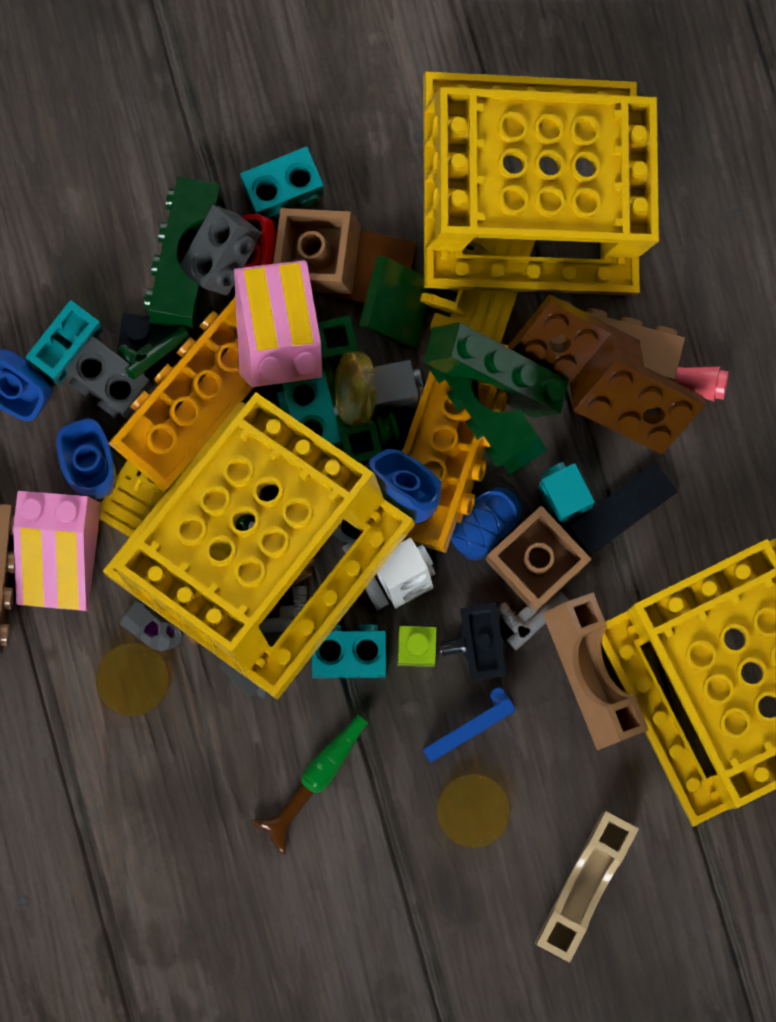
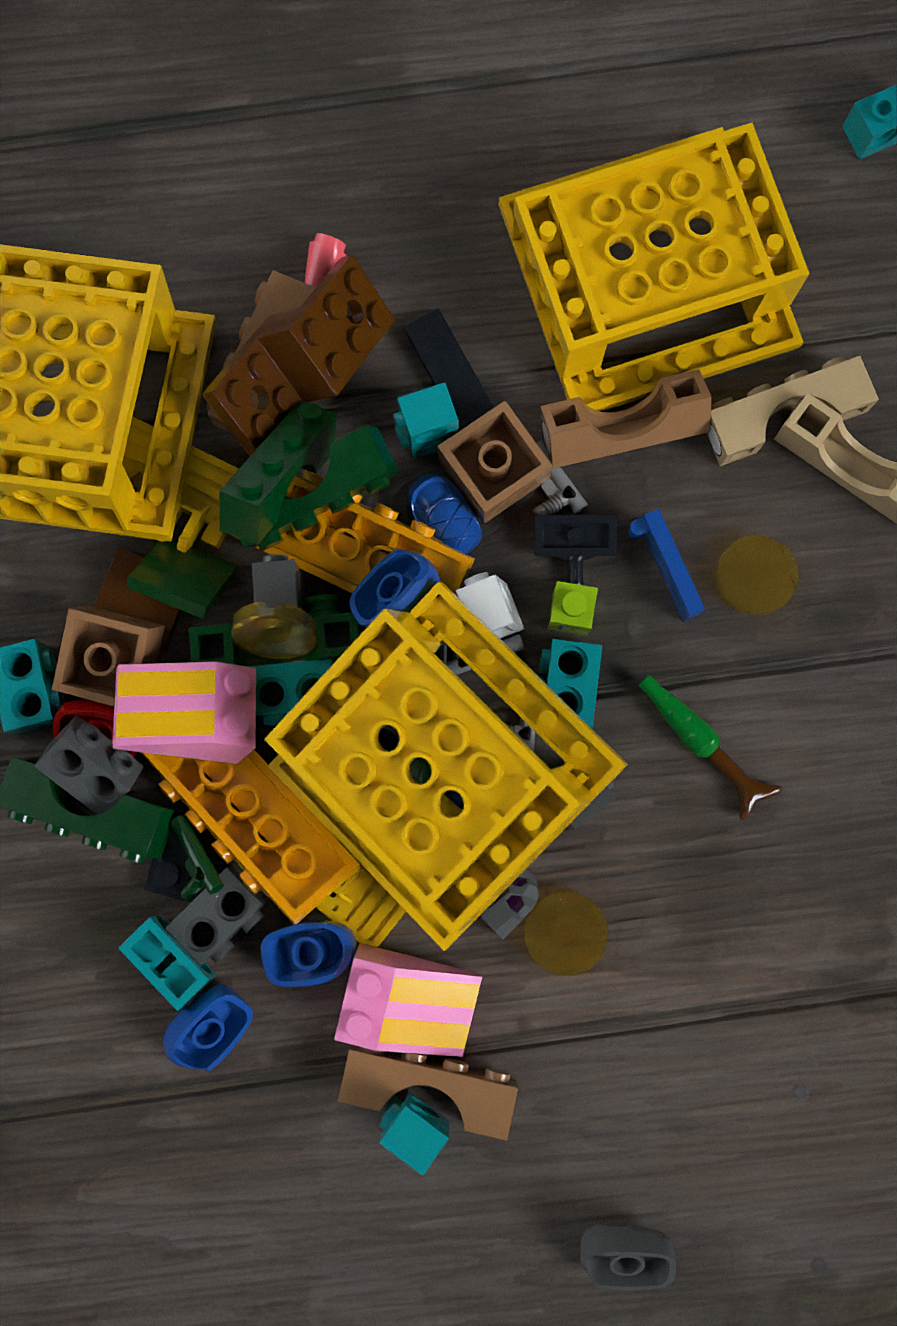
camera: 75 degrees left, 0 degrees up
(652, 861) = (740, 426): none -> tan arch

